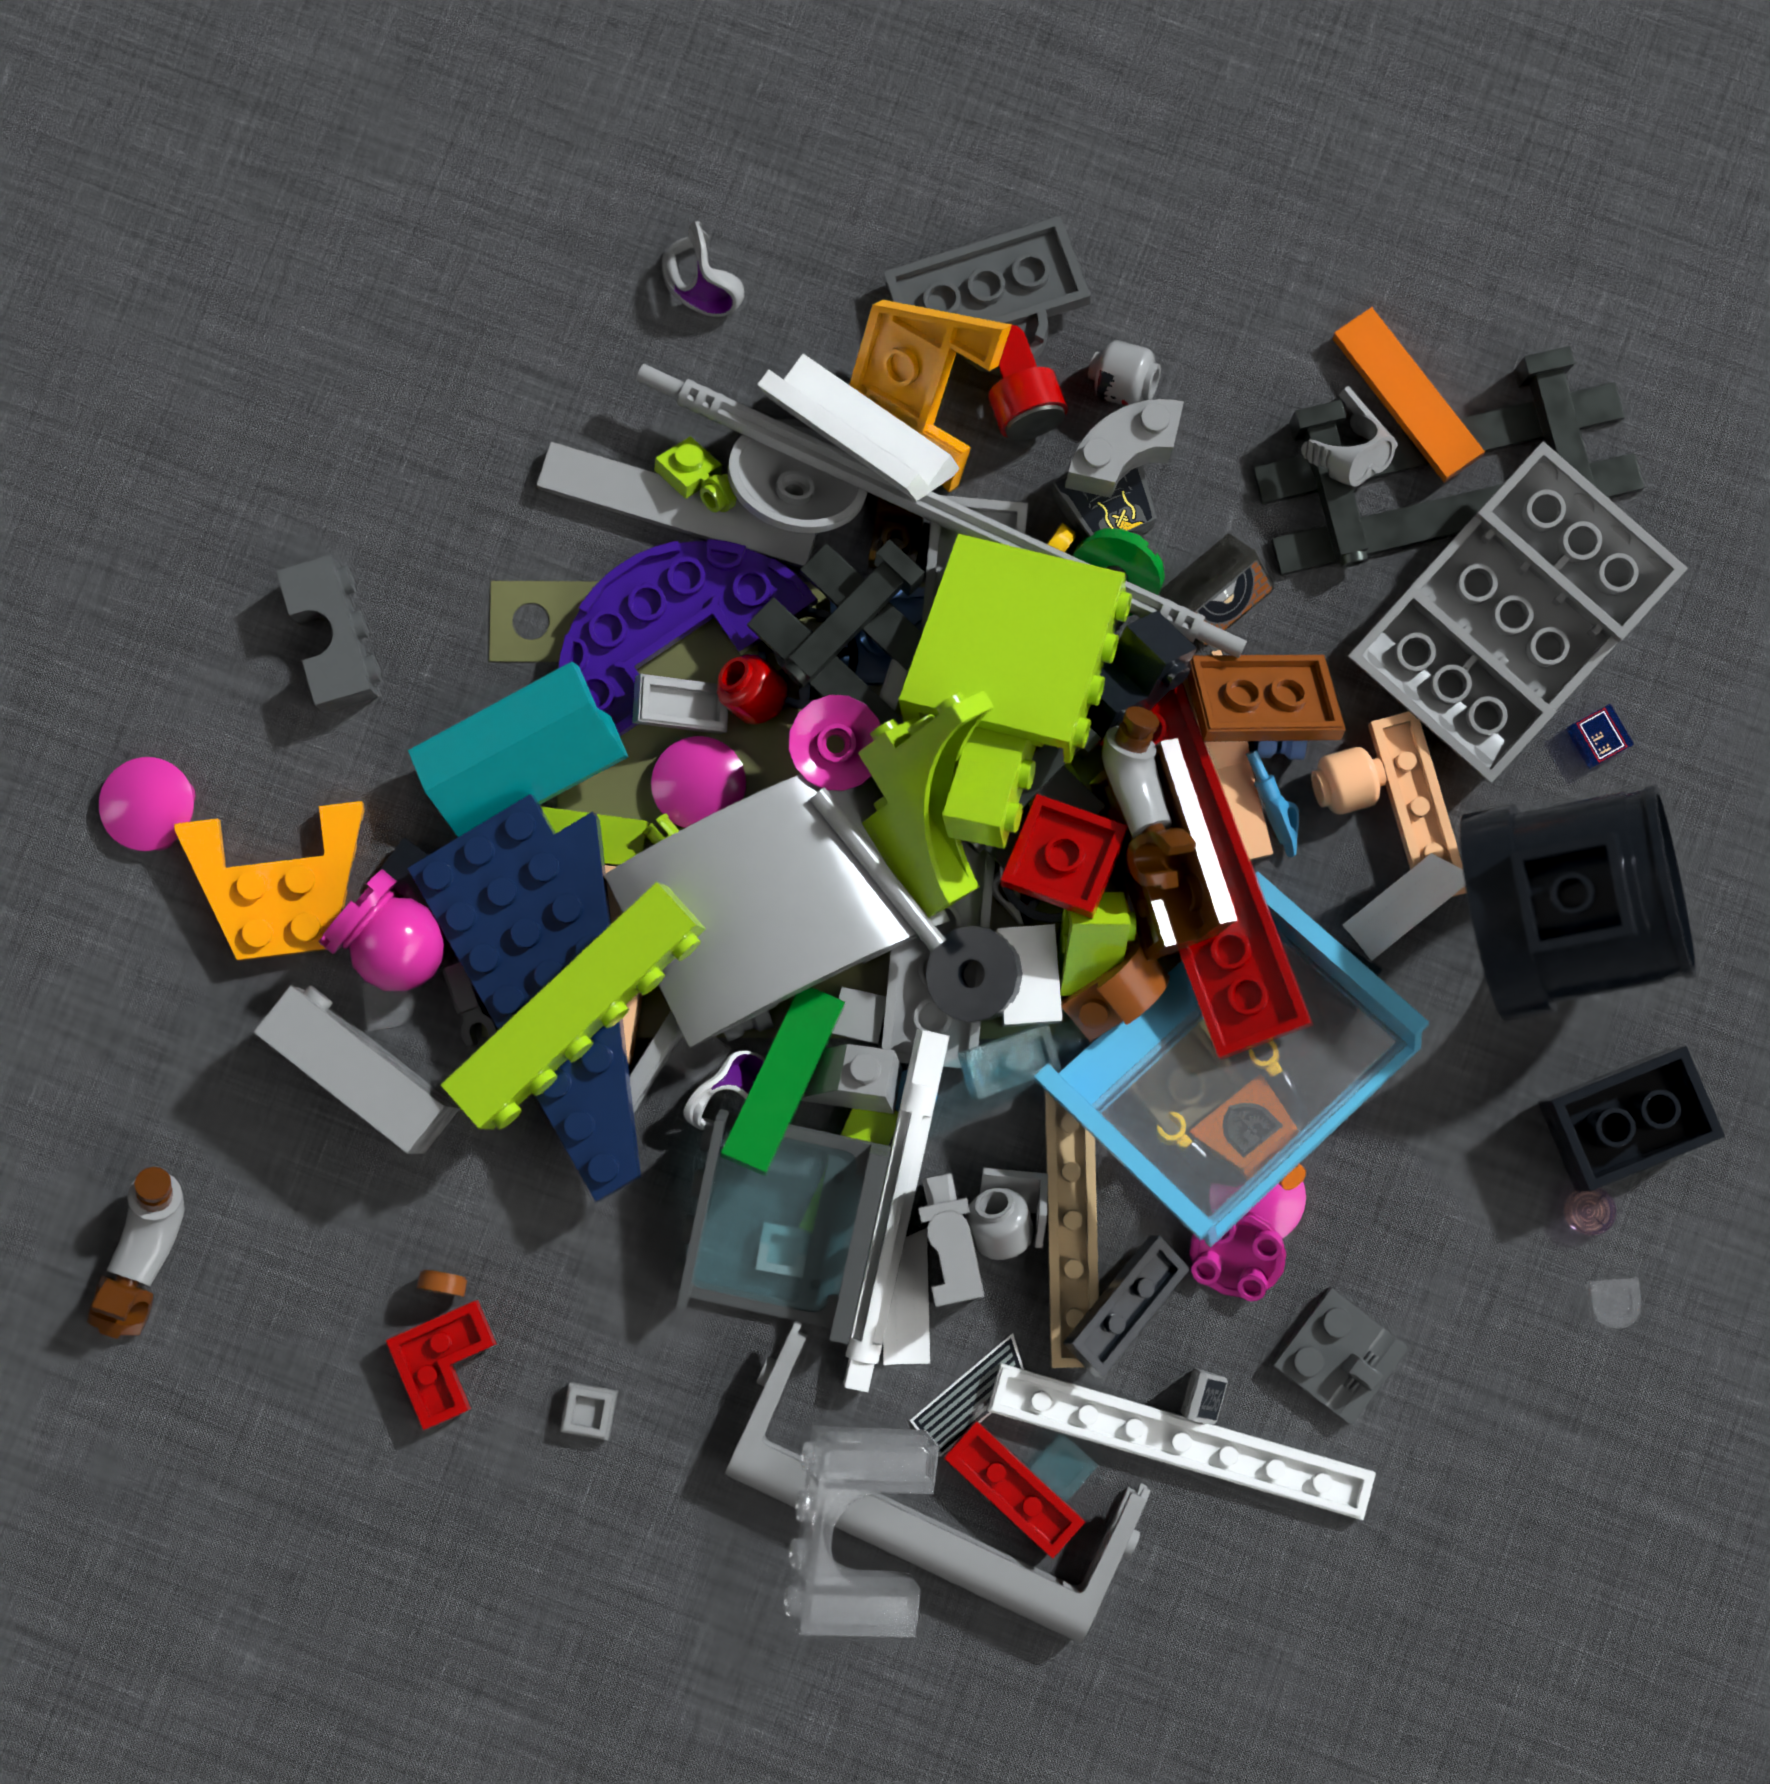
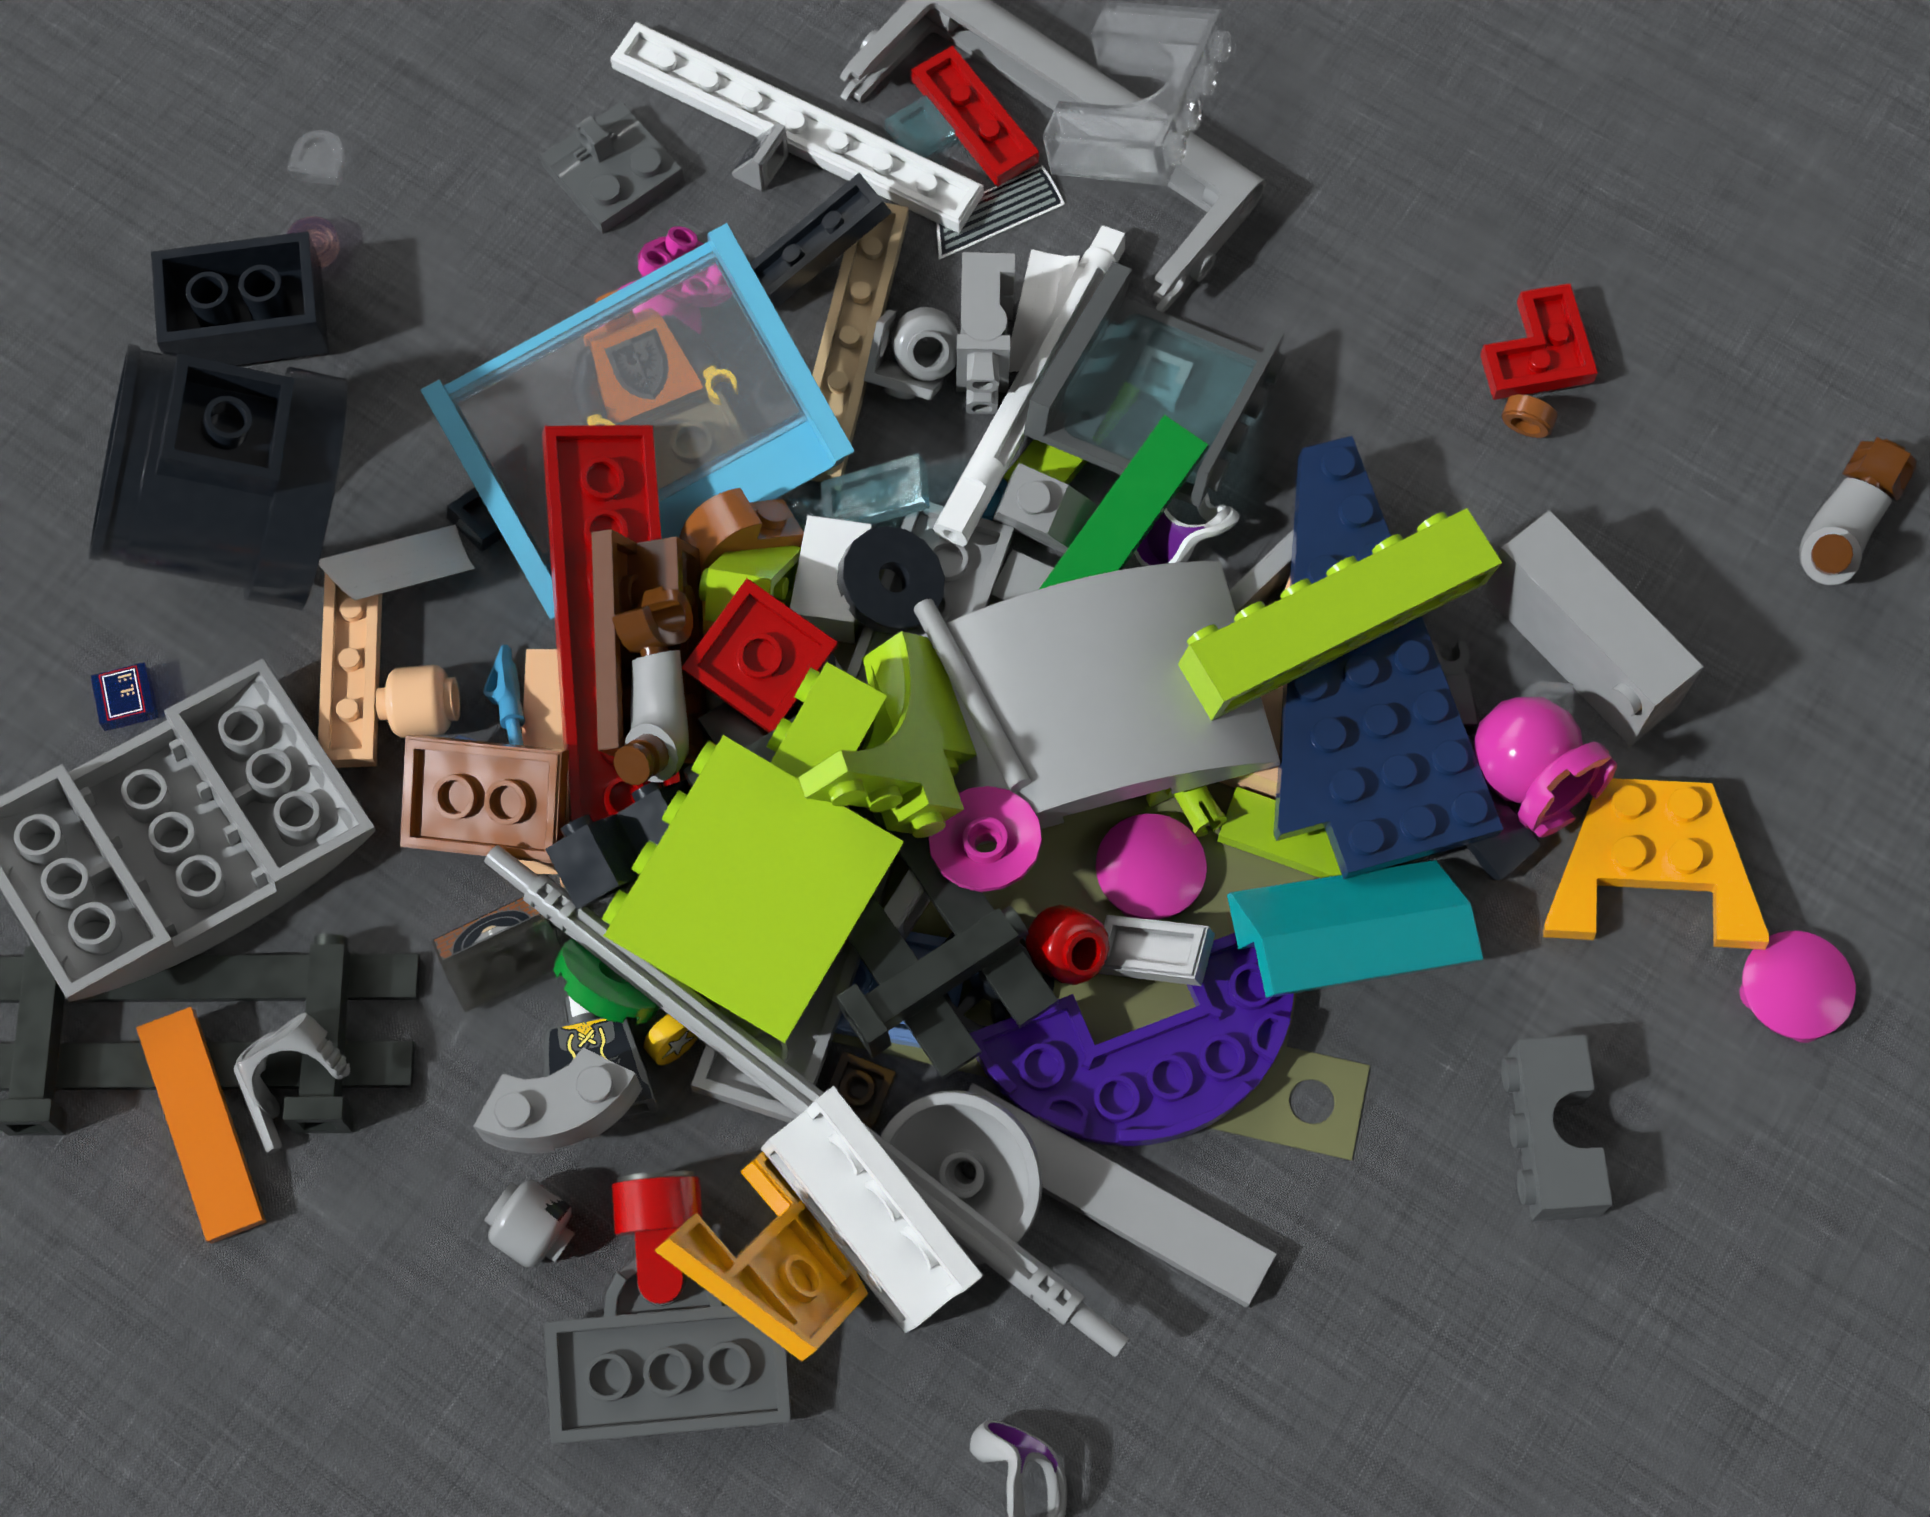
camera: 170 degrees left, 15 degrees down
(589, 1411) = (1393, 275): light grey tile -> none
(693, 469) = (1085, 1227): lime plate -> none

